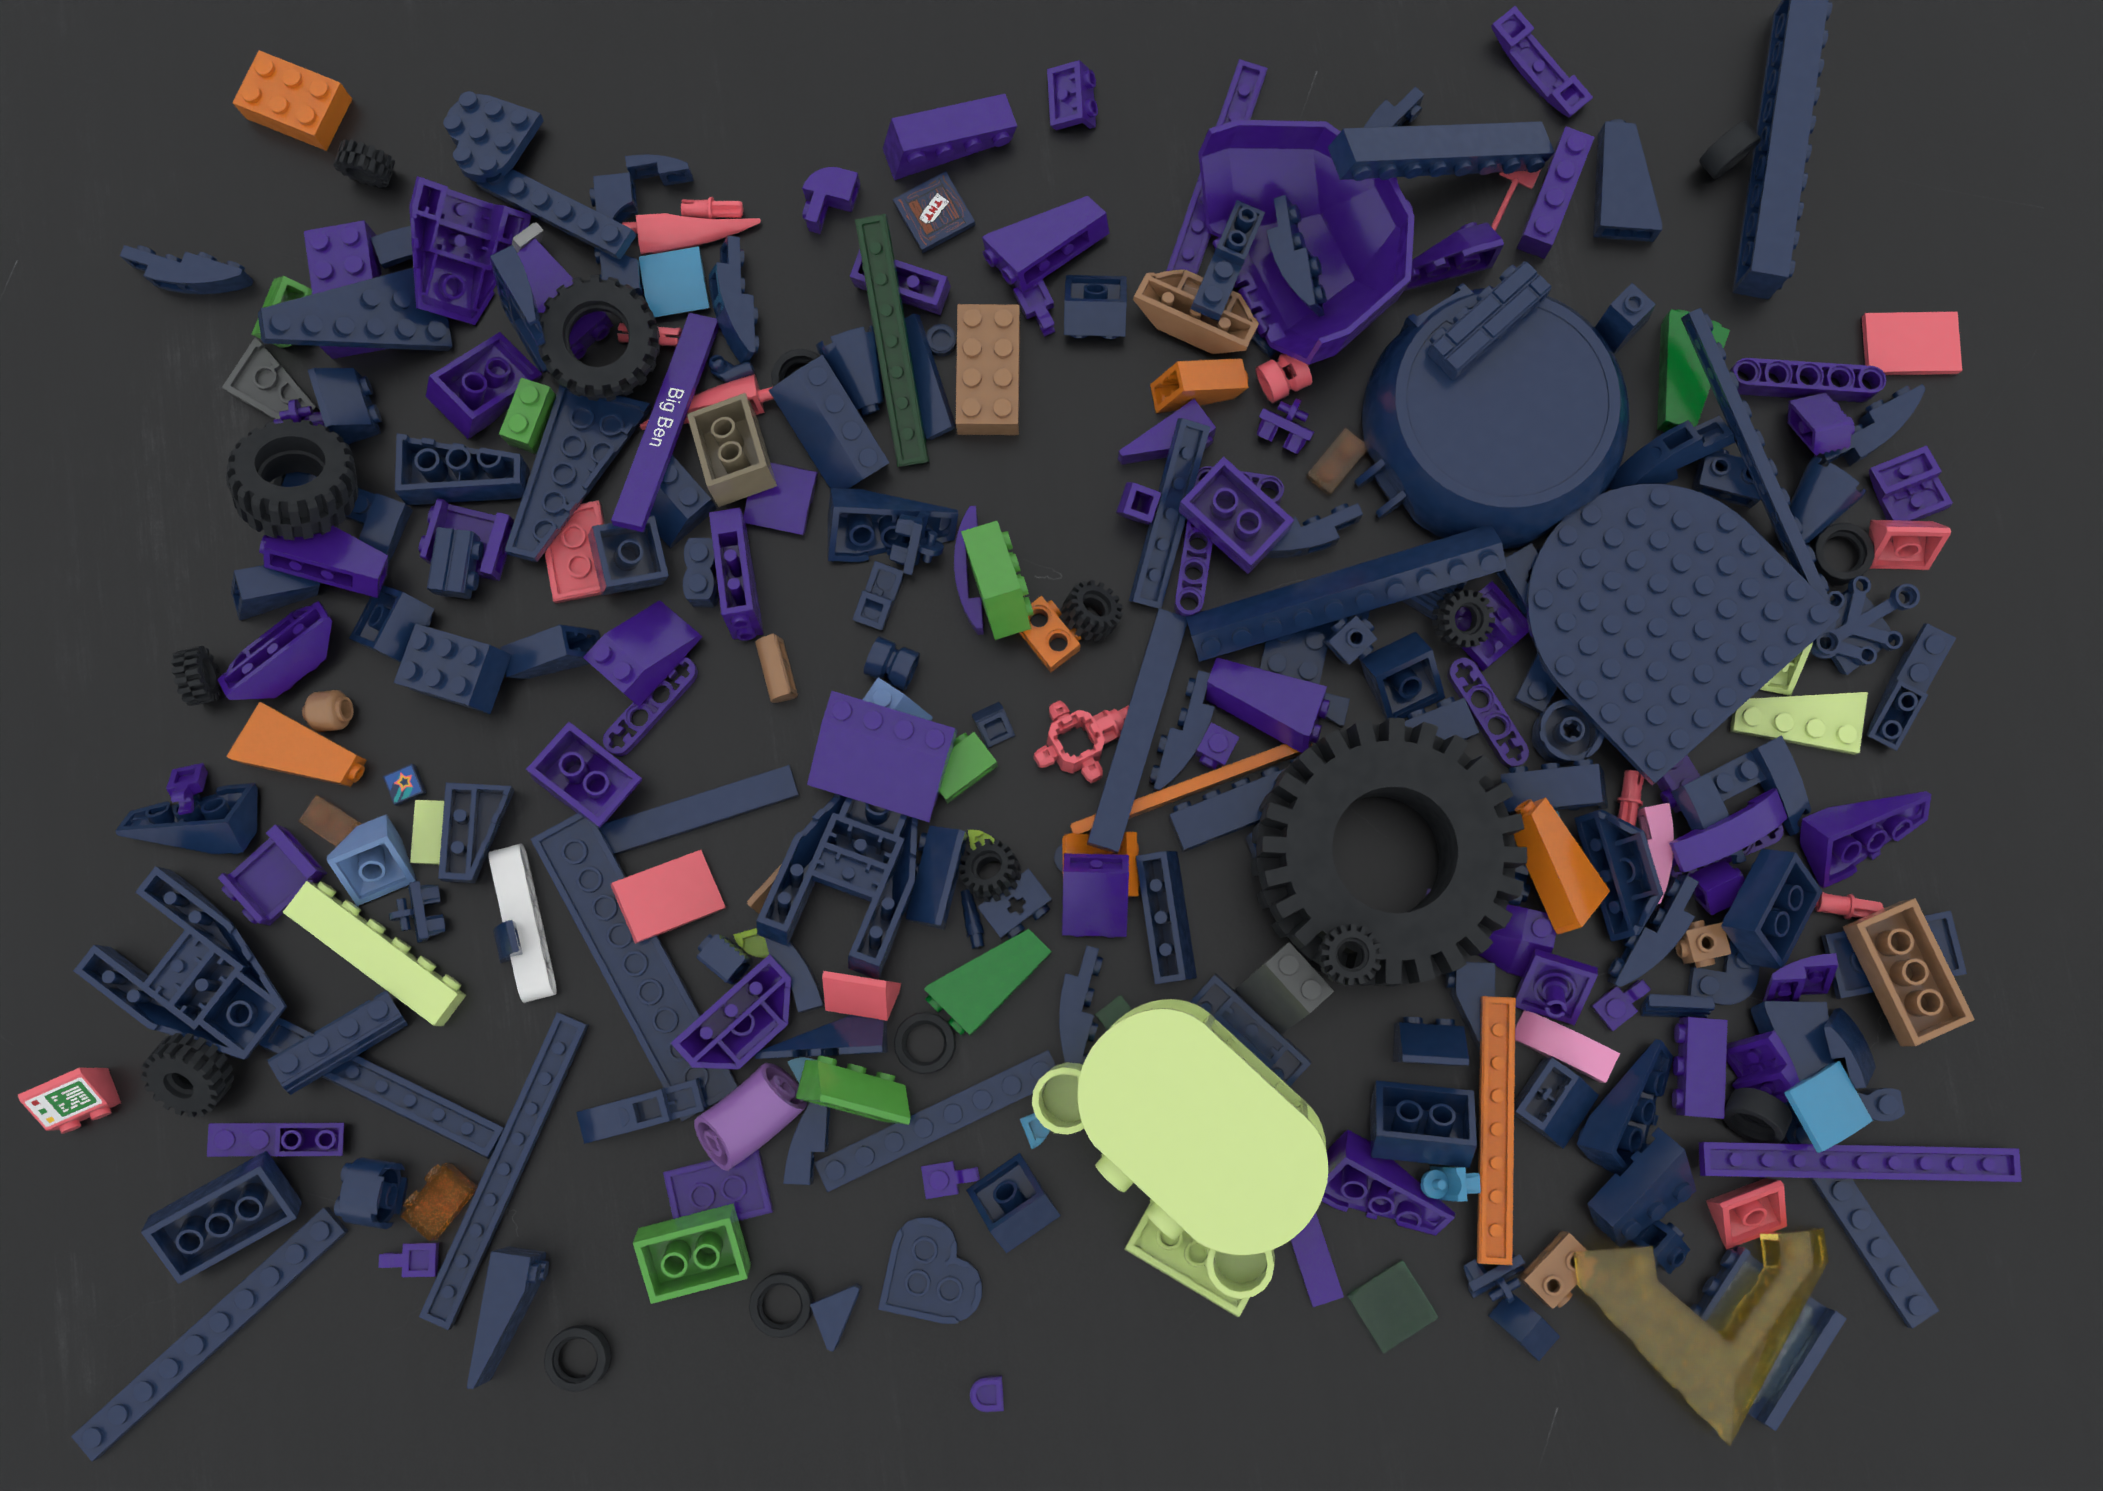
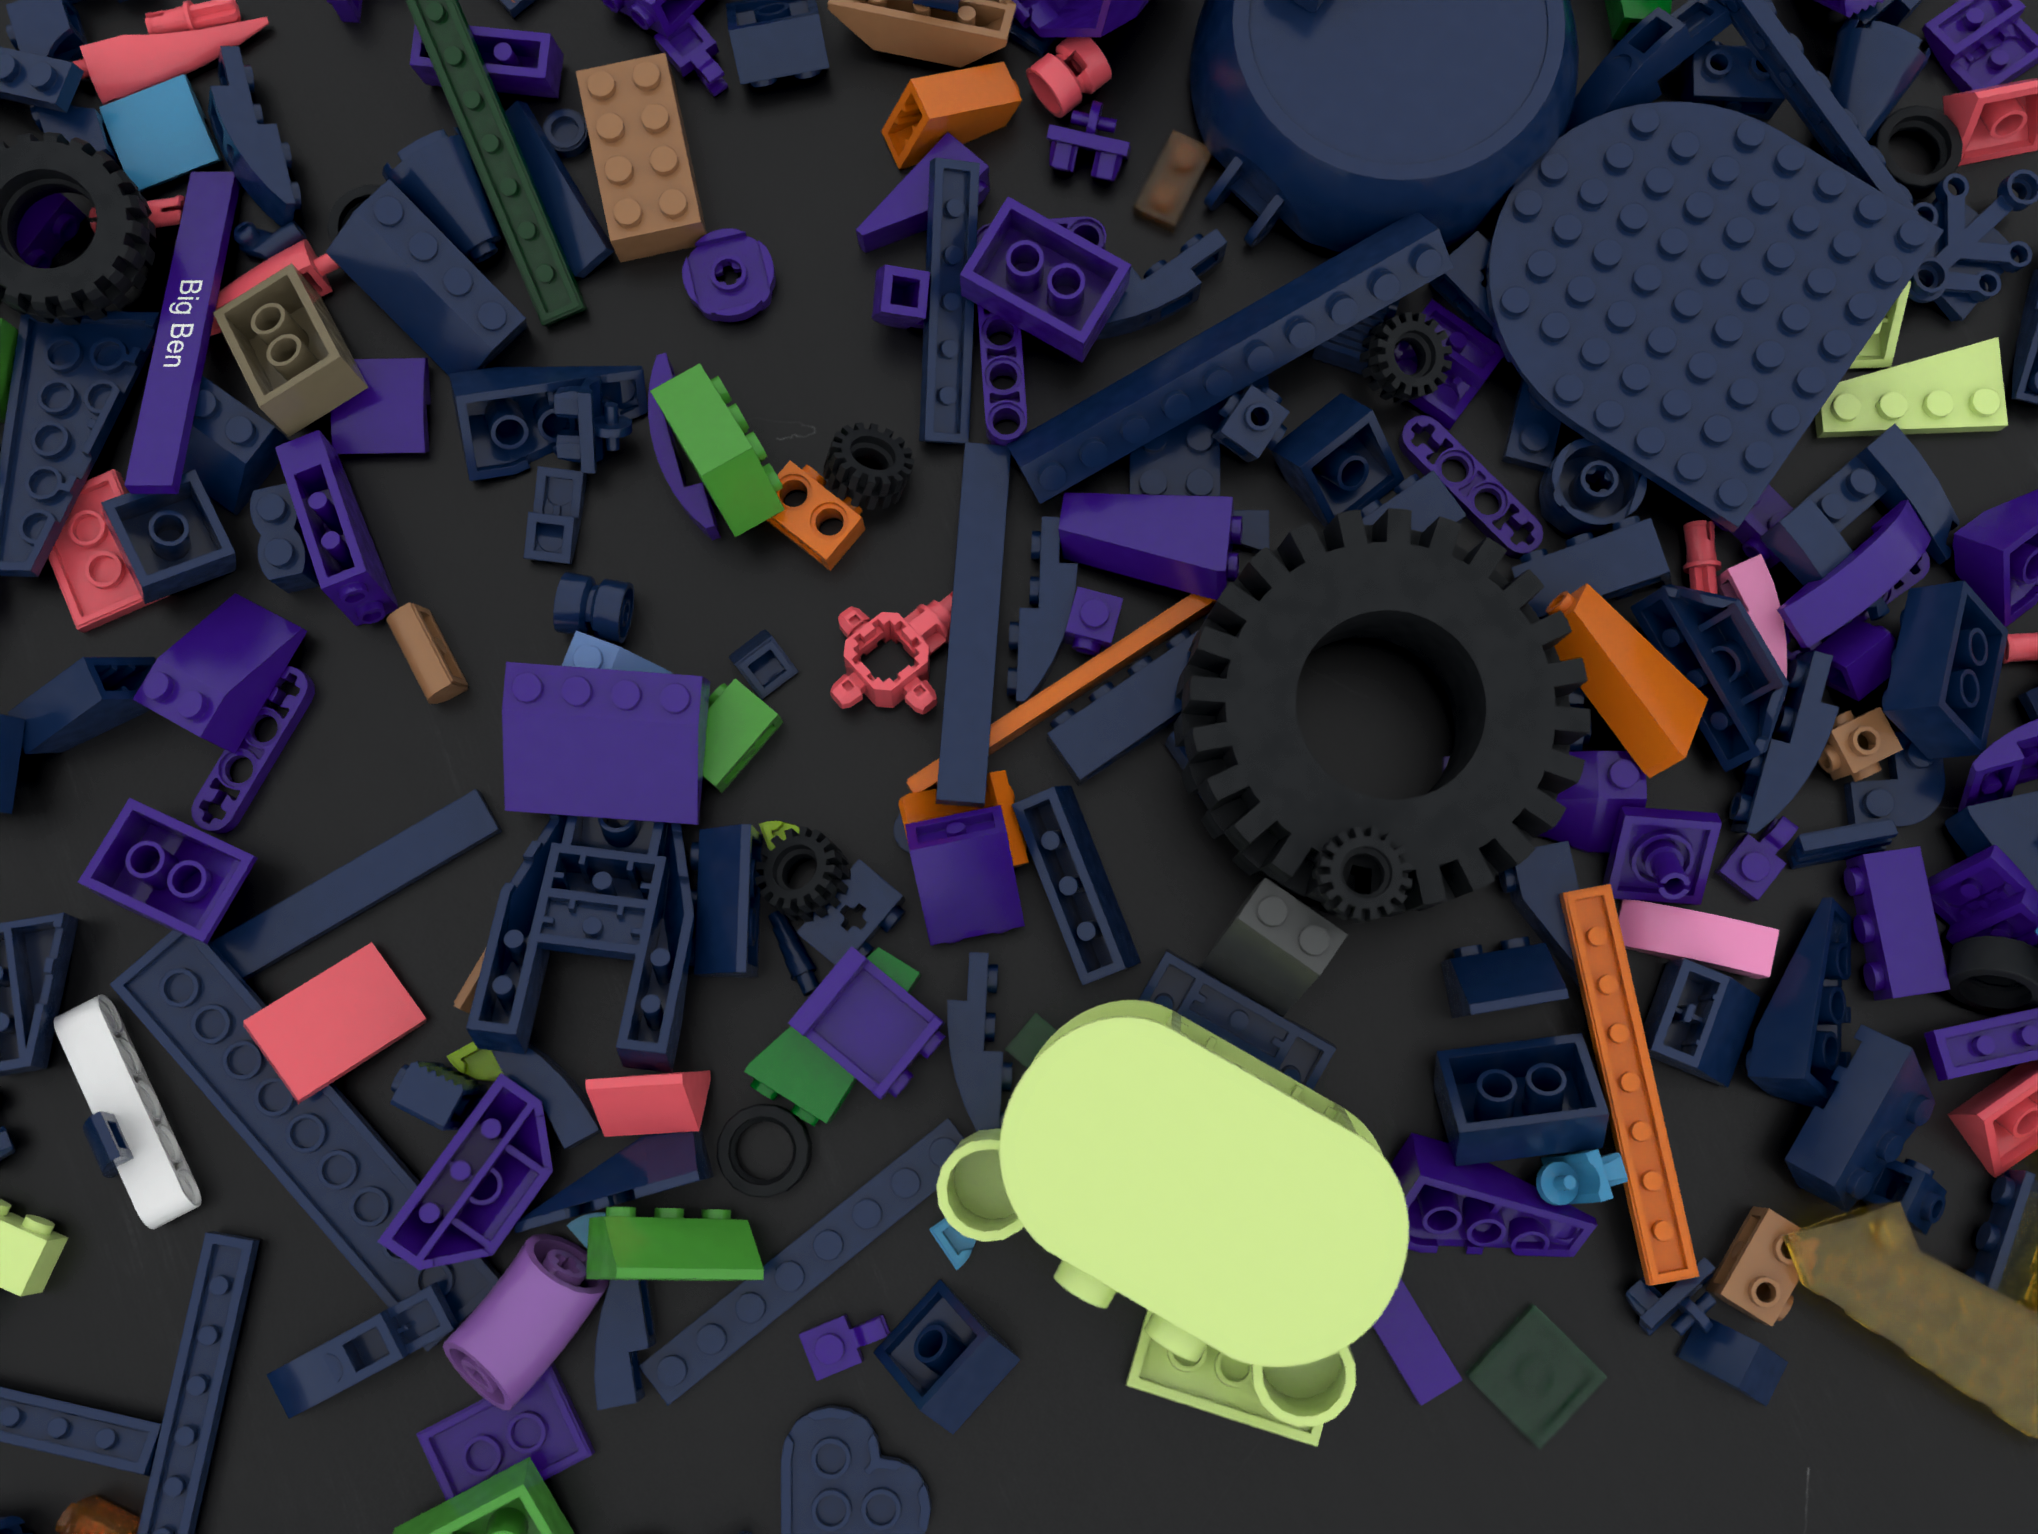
camera: 15 degrees left, 0 degrees up
(1011, 977) = (868, 1024): none -> dark purple panel
(1040, 448) = (745, 255): none -> dark purple plate

